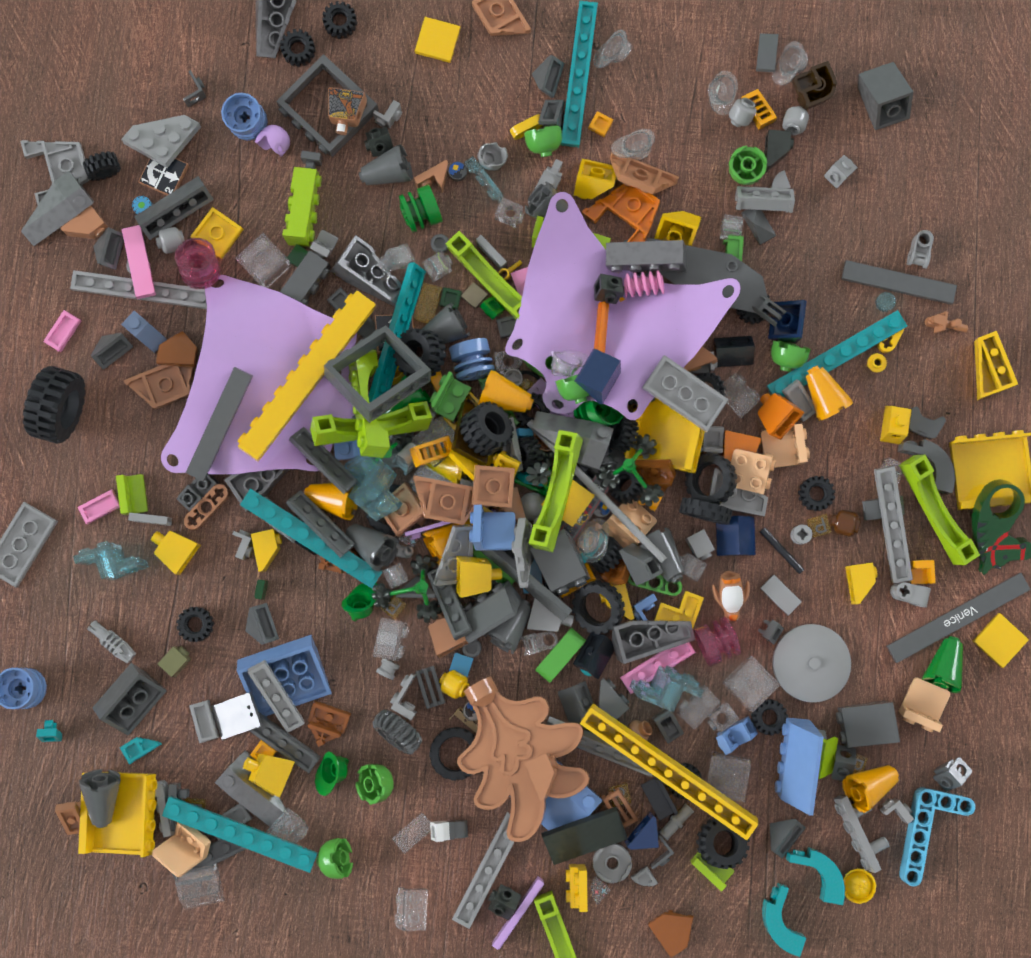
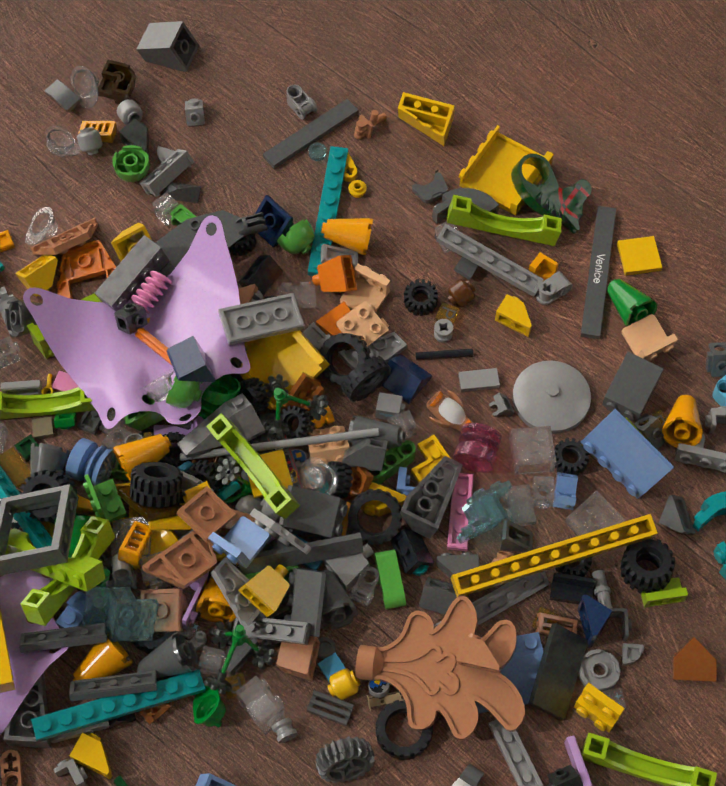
camera: 50 degrees left, 20 degrees down
(406, 708) = (318, 739): light grey bracket -> none
(895, 422) = (414, 206): yellow torso -> none

